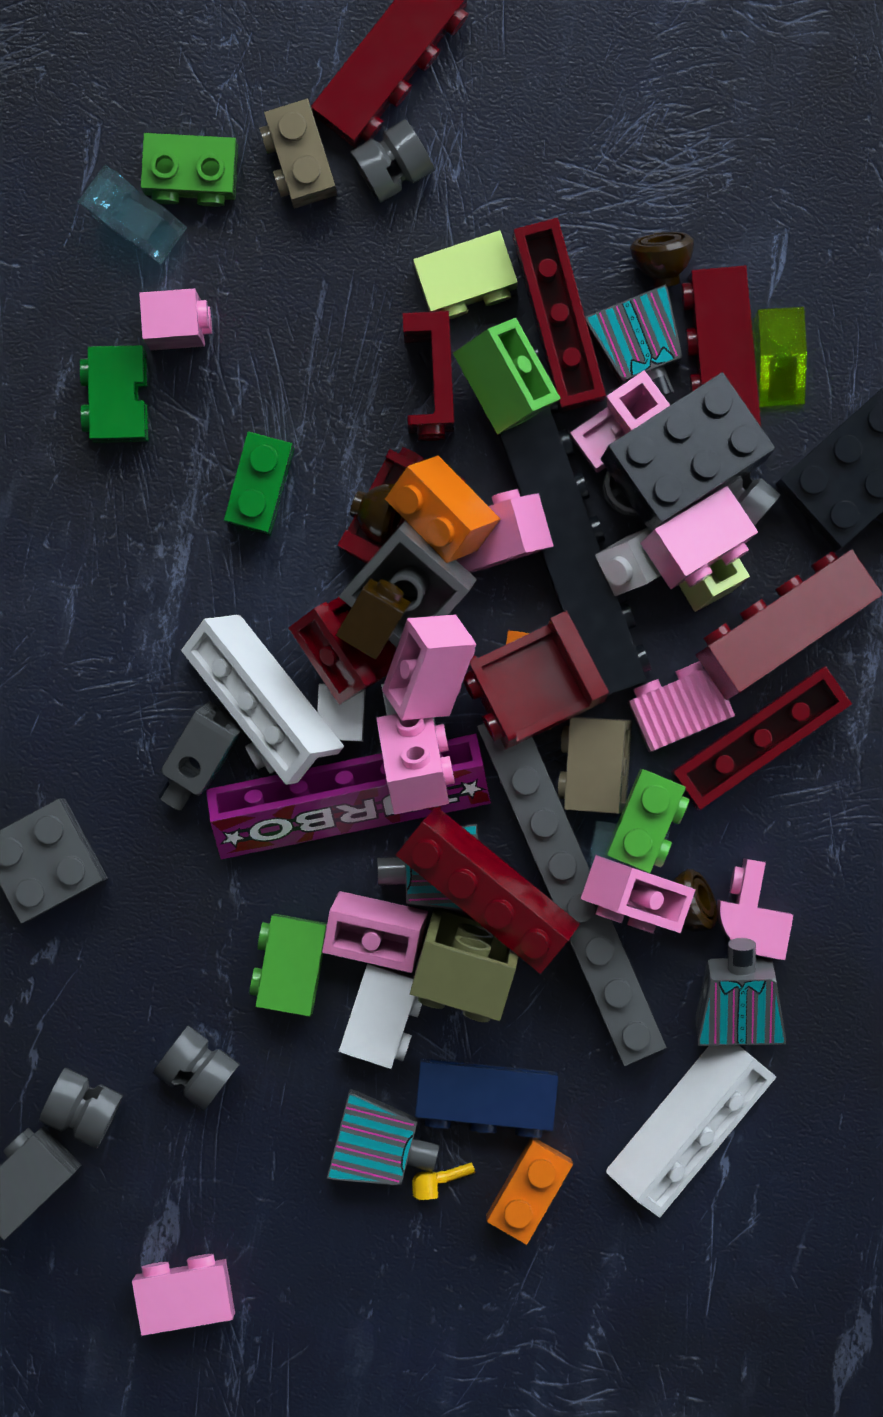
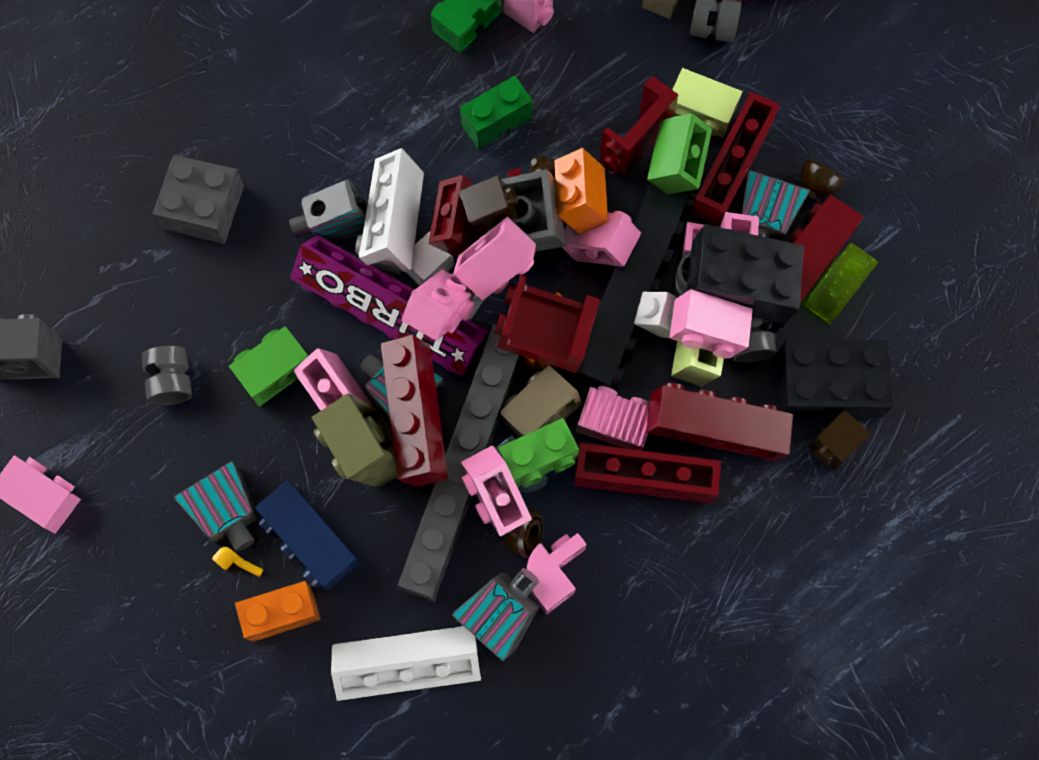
camera: 35 degrees right, 15 degrees down
(80, 1108) = (86, 342): dark grey wheel -> none
(380, 1017) = (289, 439): white brick -> none

